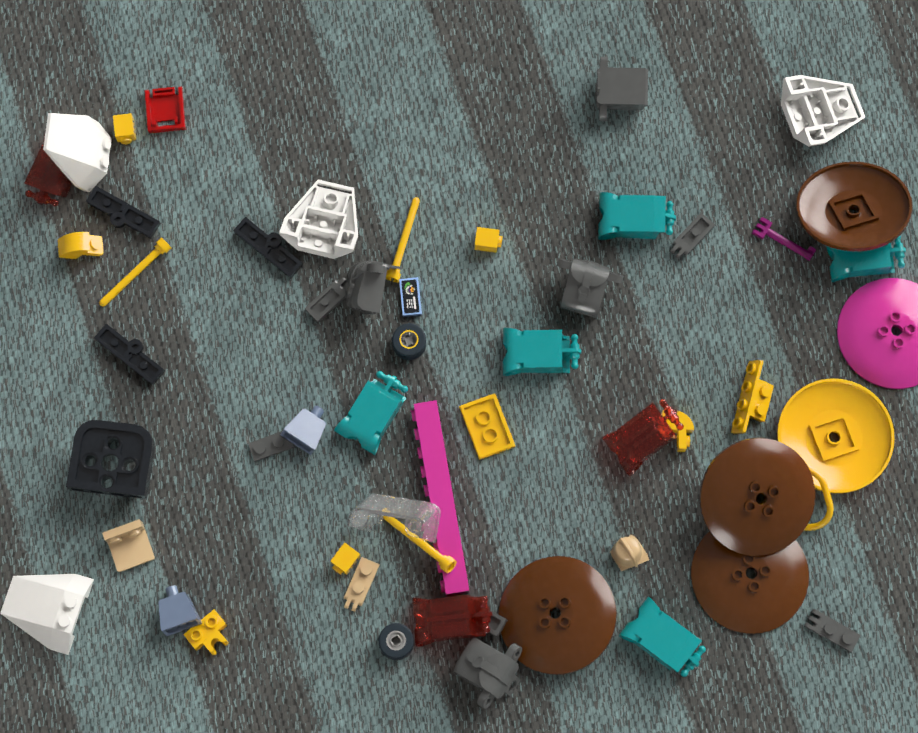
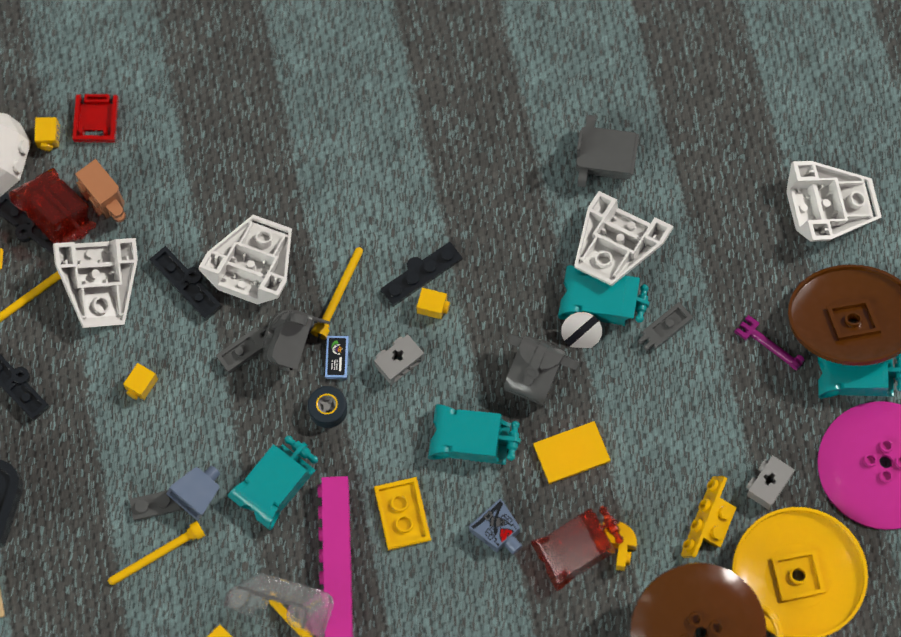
camera: 10 degrees right, 5 degrees down
(142, 195) = (53, 207): none -> clear red piece
(182, 175) = (101, 191): none -> nougat hinge
(191, 253) = (98, 279): none -> white wedge
(242, 340) = (140, 382): none -> yellow brick
(308, 465) = (193, 532): none -> yellow piece
(462, 302) = (395, 369): none -> light grey brick
(472, 214) = (420, 273): none -> black hinge
(571, 429) = (497, 528): none -> sand blue torso
(620, 247) = (581, 330): none -> white sticker
(625, 355) = (571, 452): none -> yellow tile
(641, 165) = (616, 240): none -> white wedge
(795, 370) = (780, 475): none -> light grey brick

